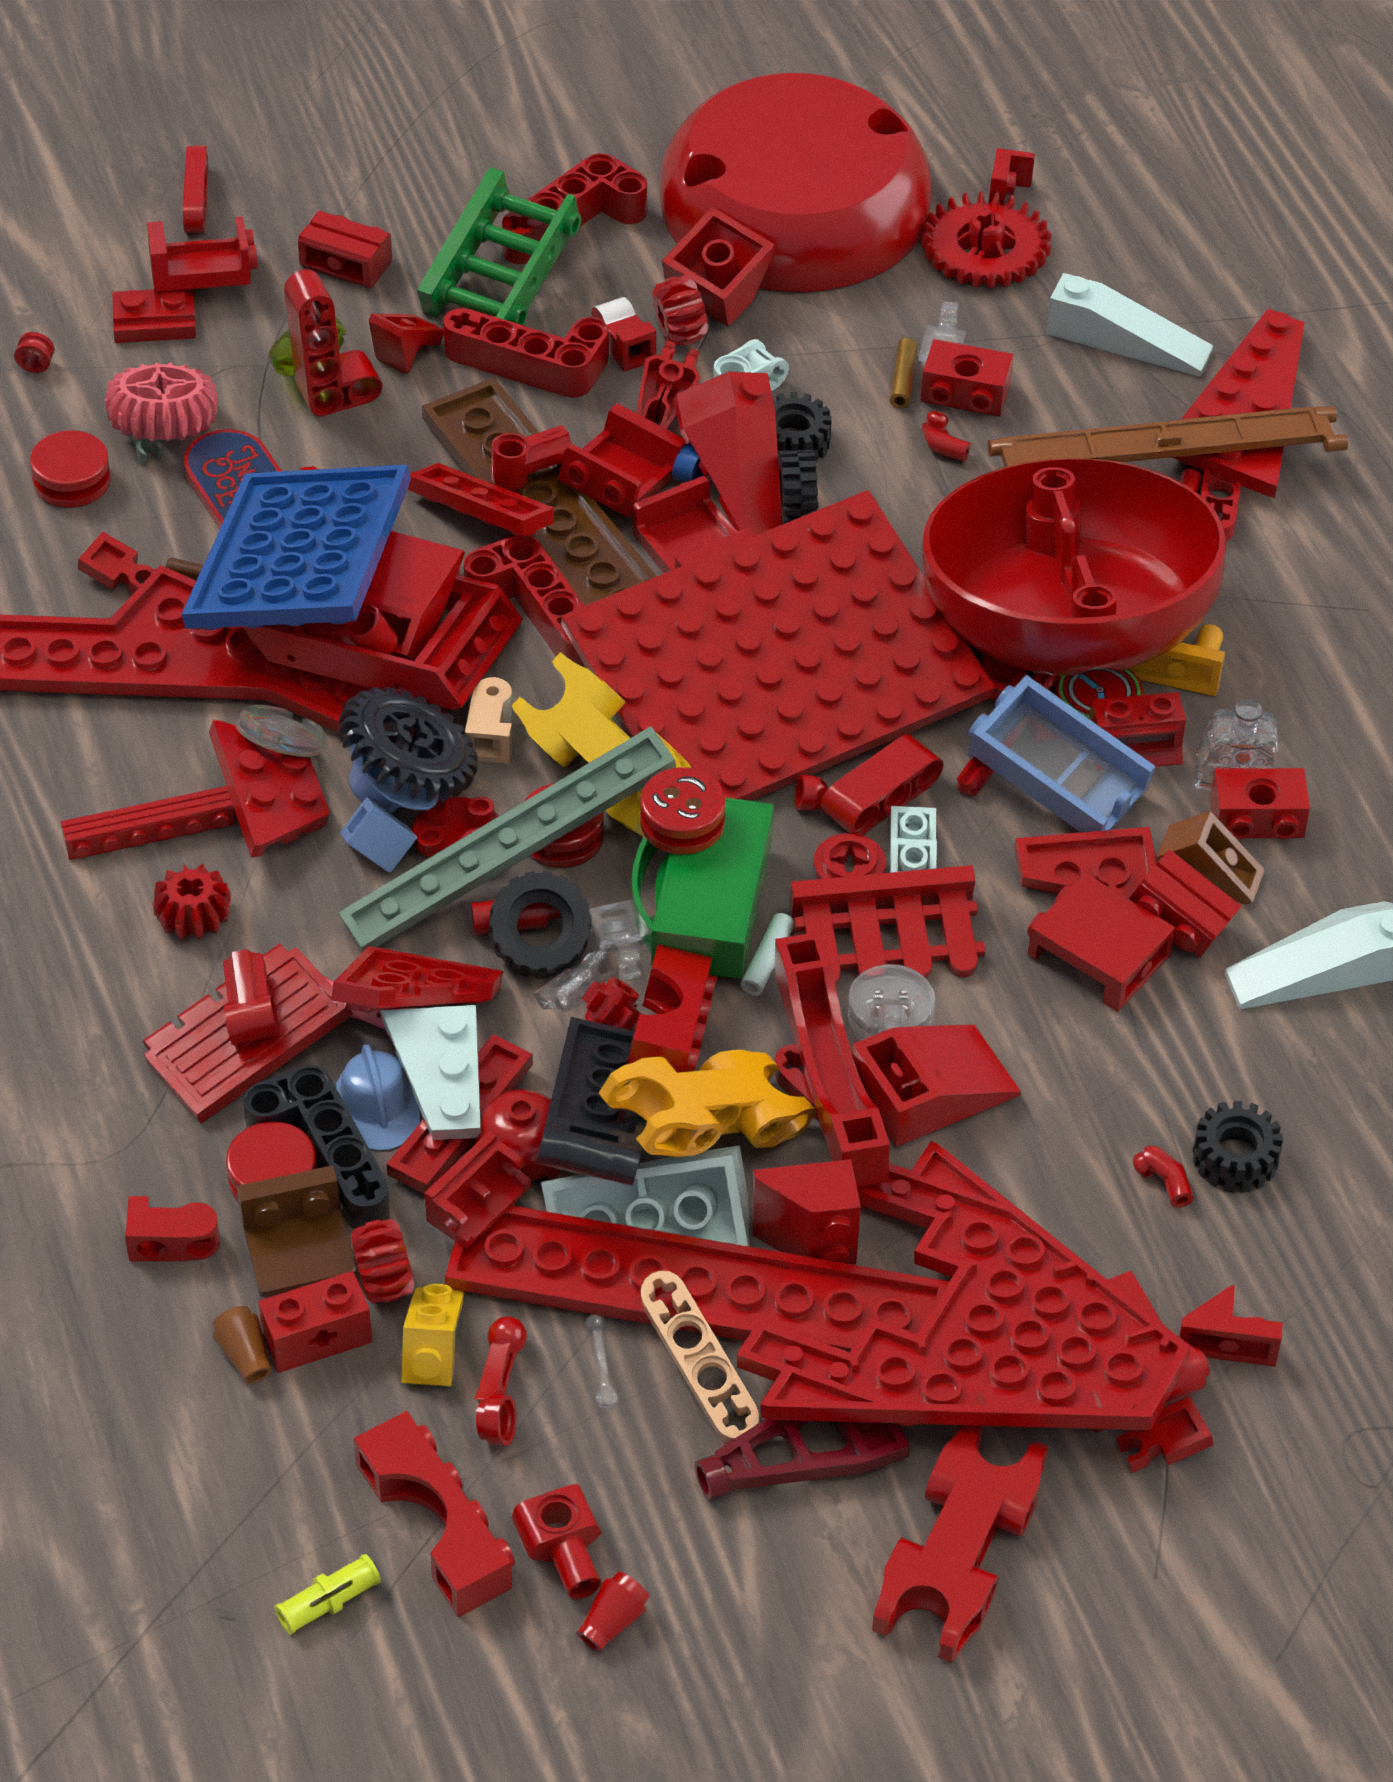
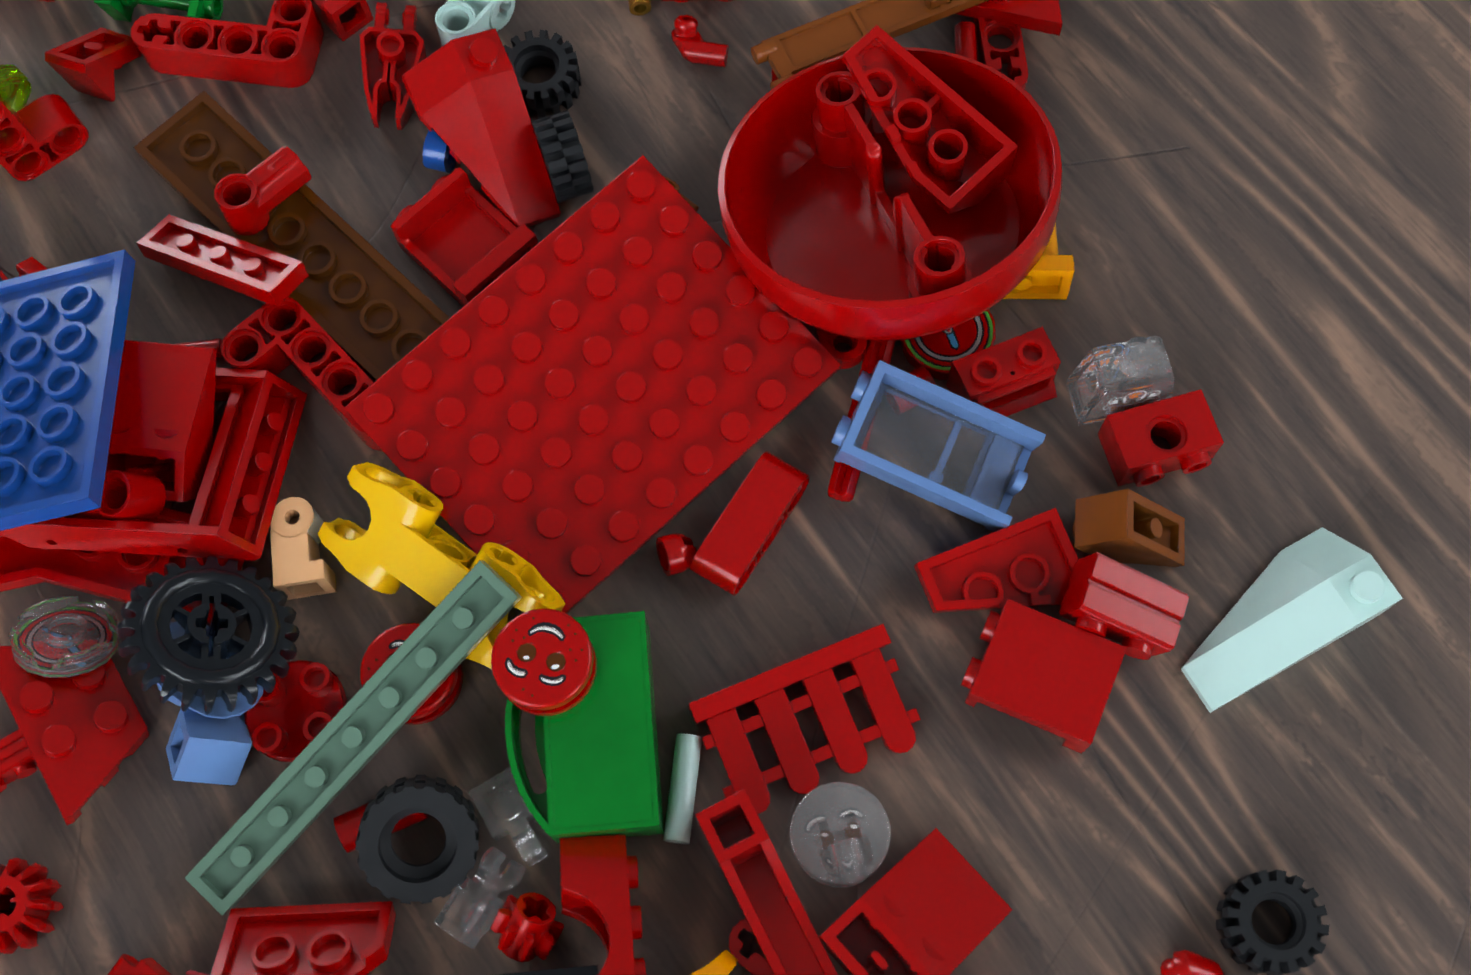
camera: 10 degrees left, 20 degrees up
(622, 462) = (366, 168): red panel -> none
(834, 851) = (756, 618): red gear -> none
(912, 838) = (804, 594): light aqua slope -> none
(1125, 522) = (934, 131): none -> red wedge

